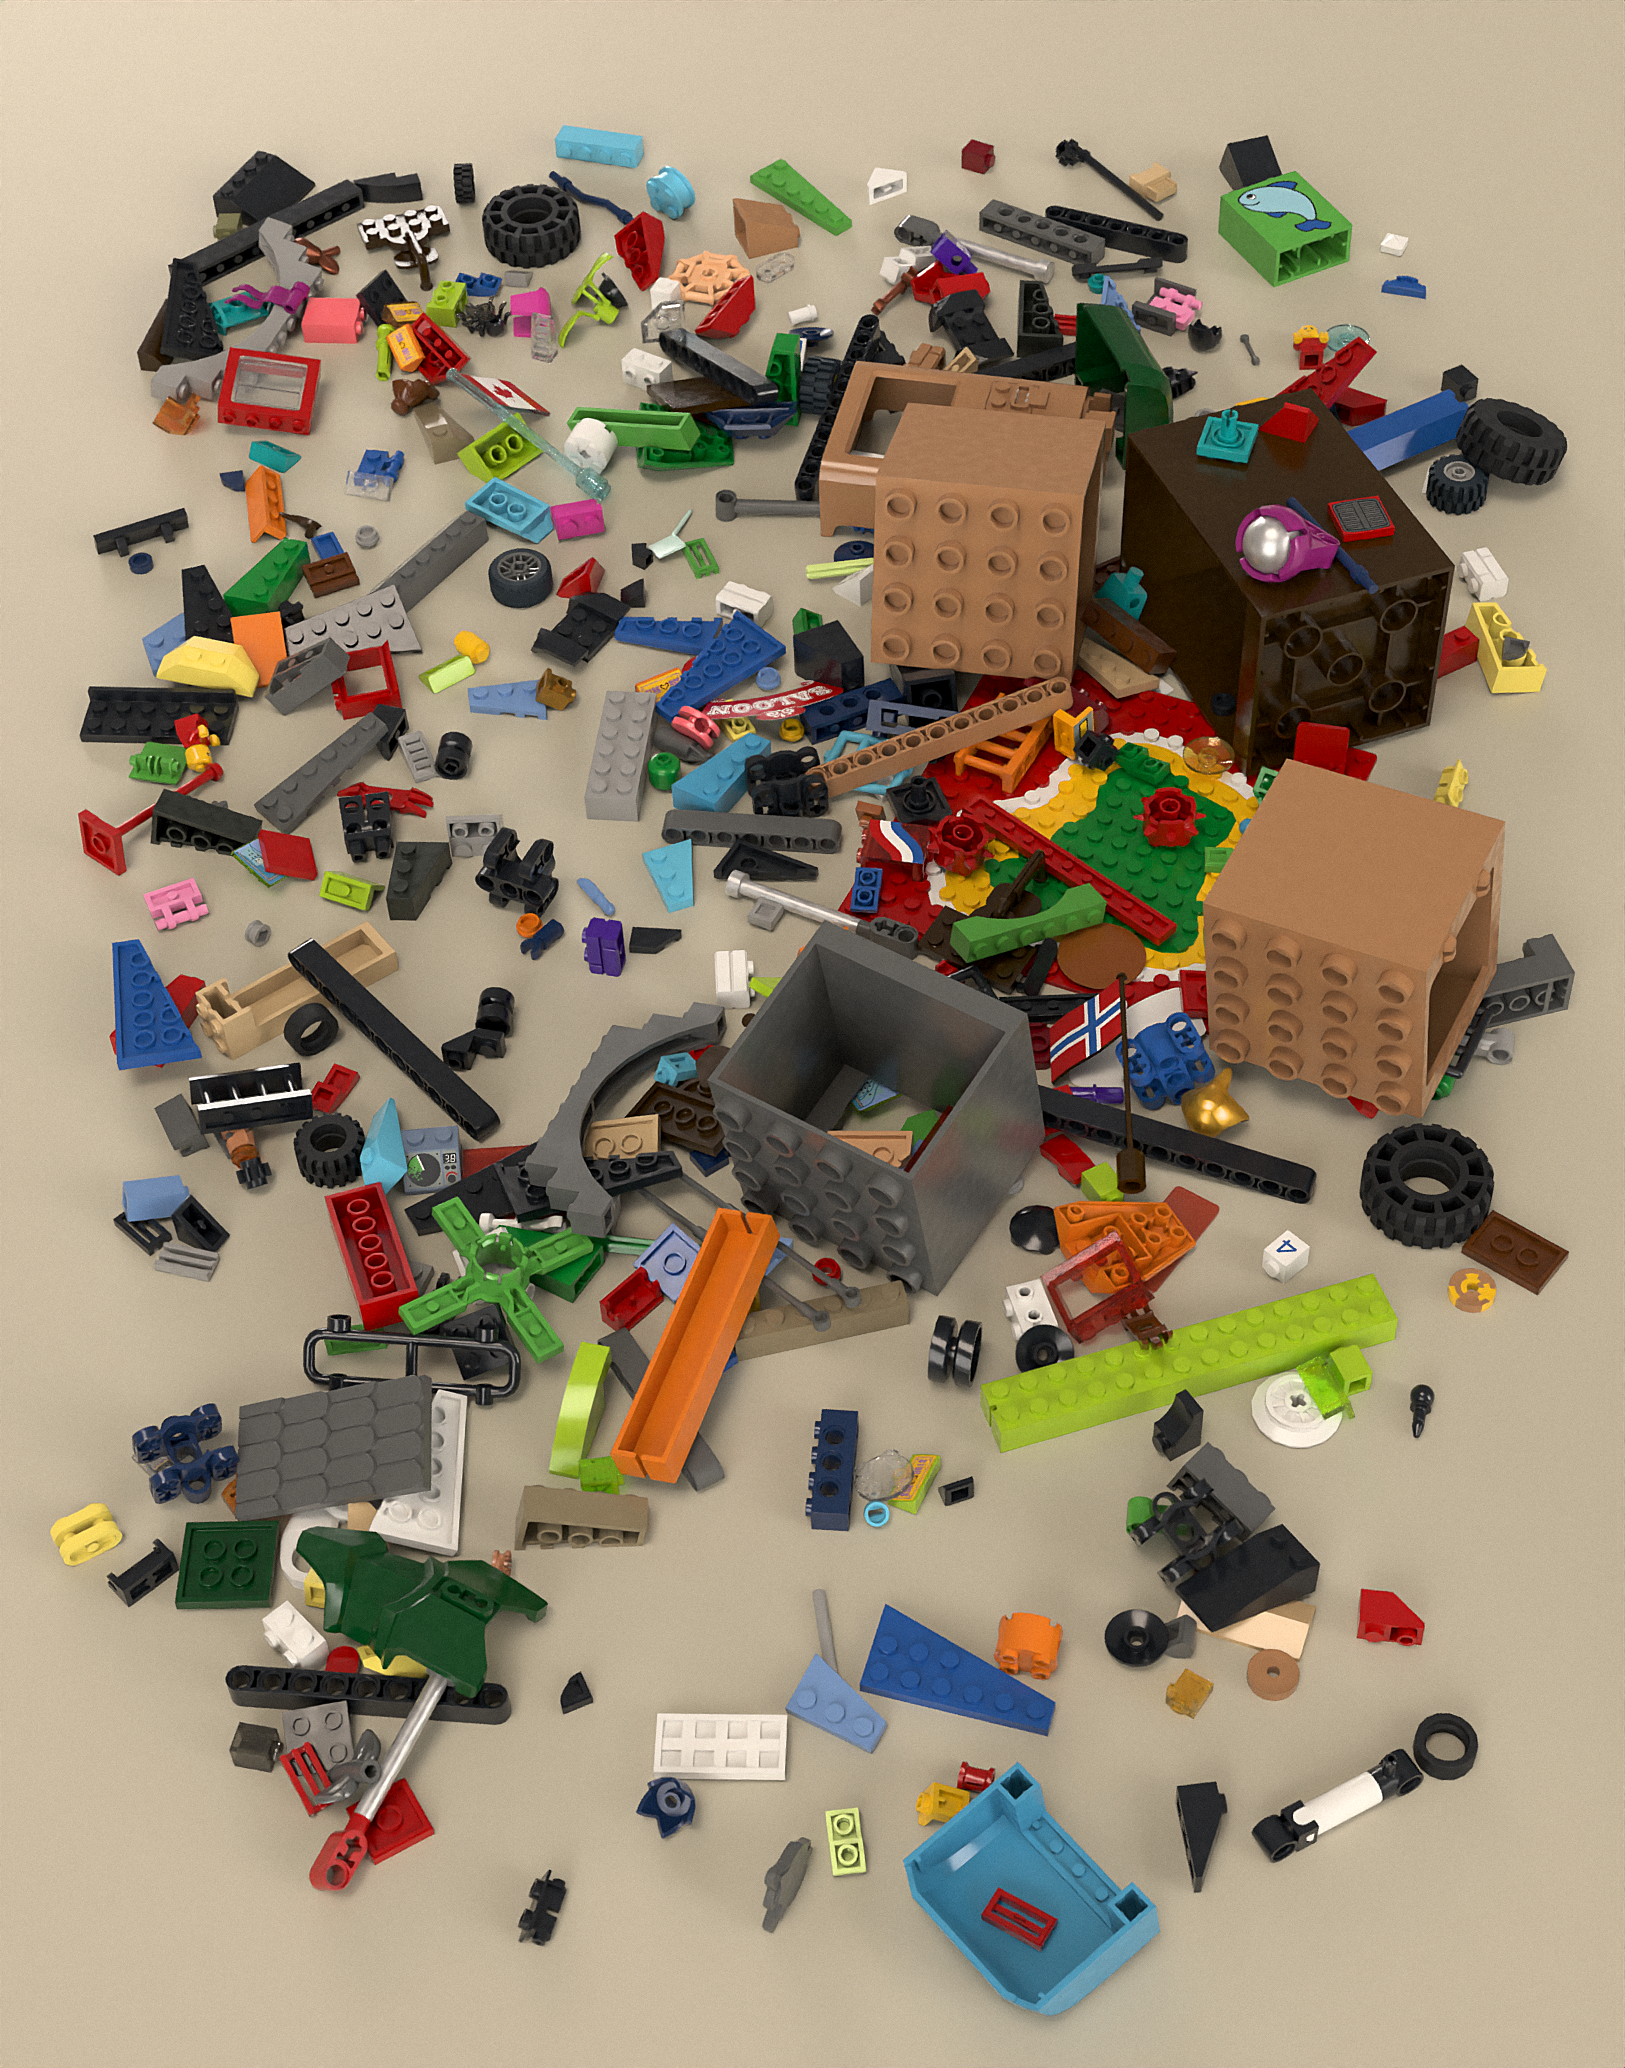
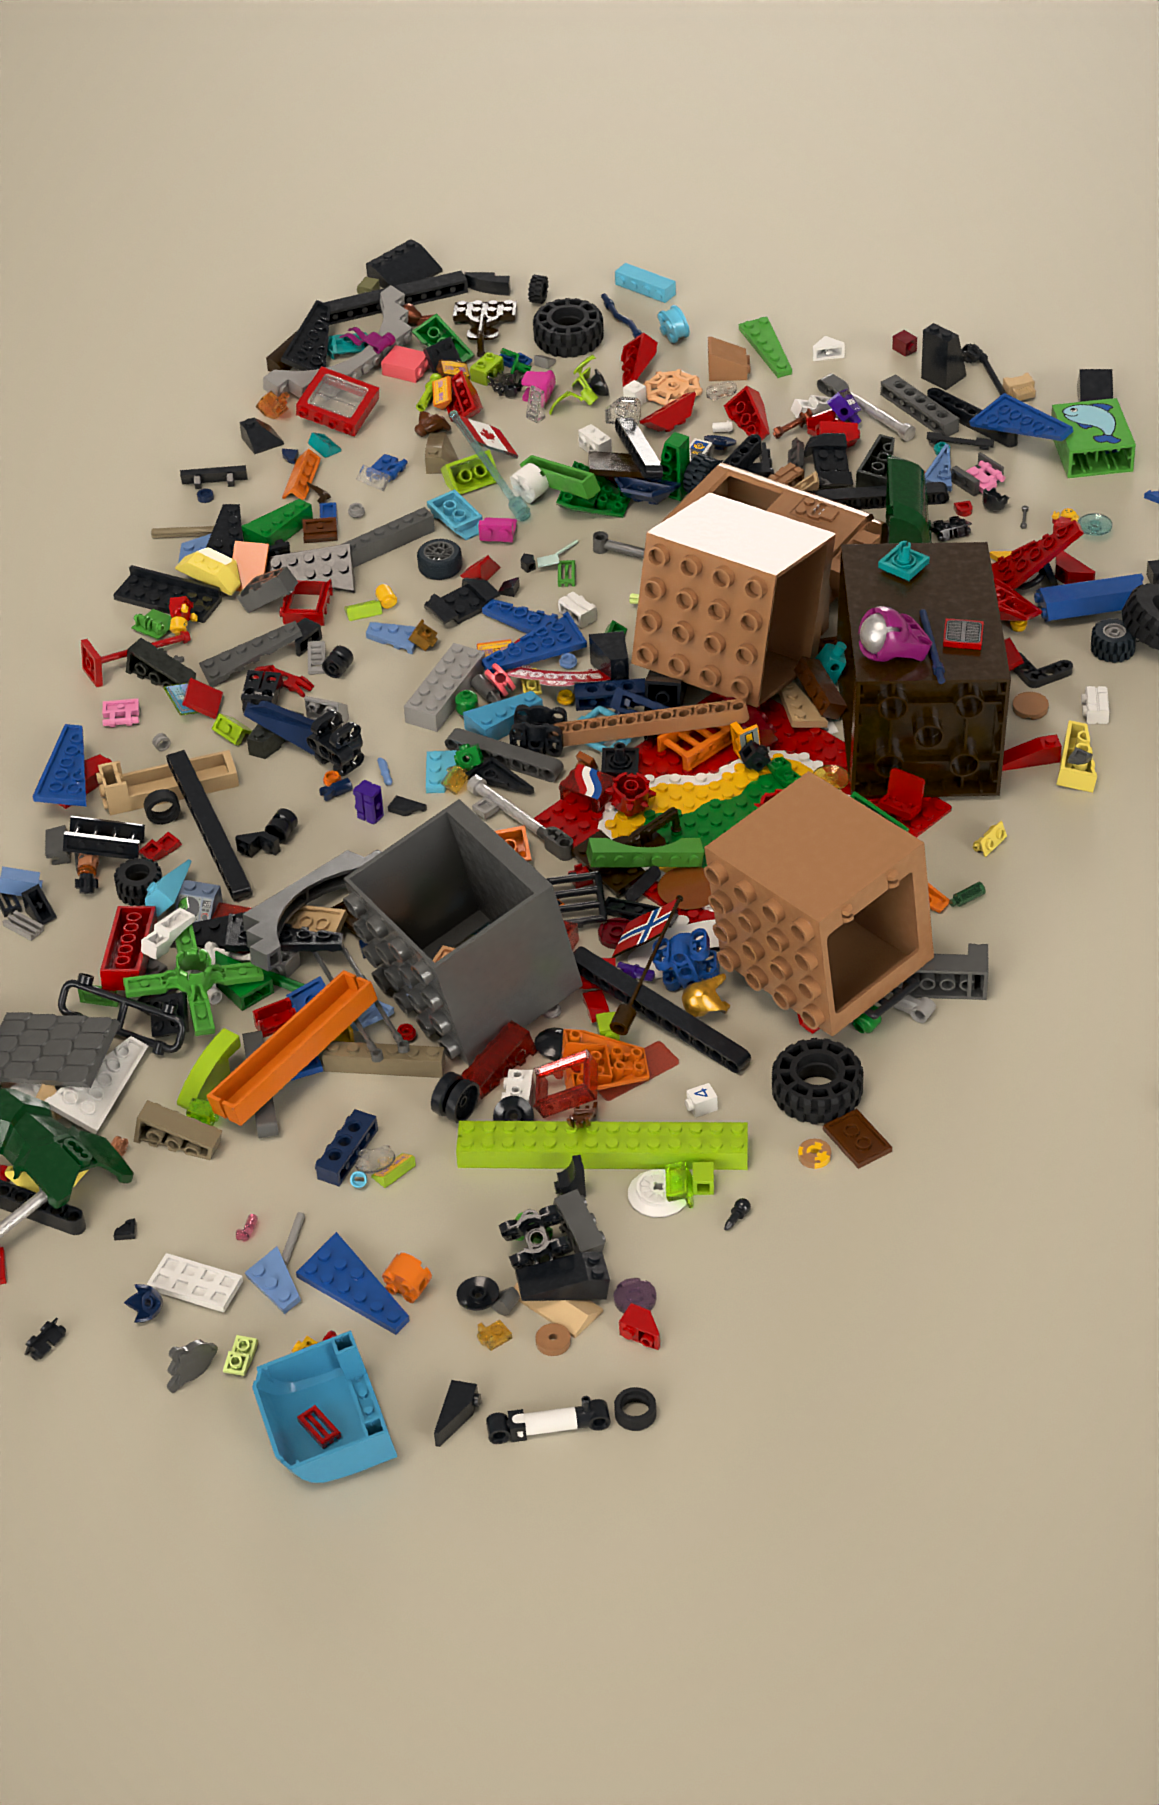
camera: 20 degrees right, 5 degrees down
(135, 621) = (181, 532): none -> dark tan axle
(177, 463) = (259, 435): none -> black slope
(355, 269) = (435, 330): none -> green wedge
(430, 1221) = (165, 933): none -> white slope
(433, 863) = (282, 722): none -> dark blue wedge
(485, 289) = (523, 368): none -> green bracket
(704, 883) = (454, 779): none -> clear yellow bracket
(717, 846) = (474, 754): none -> green brick
(756, 1632) = (248, 1228): none -> clear pink arm
(829, 290) = (748, 412): none -> red wedge
(866, 890) = (557, 808): blue slope -> none
(919, 329) = (796, 453): none -> dark grey hinge
(957, 1491) = (416, 1180): black slope -> none
(982, 1271) = (500, 1055): none -> clear red wedge
(1045, 163) = (942, 357): none -> black slope
(1071, 869) = (675, 798): red plate -> none
(1168, 355) = (963, 508): none -> red tile
(1182, 221) = (1017, 417): none -> blue wing
(1291, 423) = (955, 561): red slope -> none
(1346, 1572) = (636, 1292): none -> clear purple tile

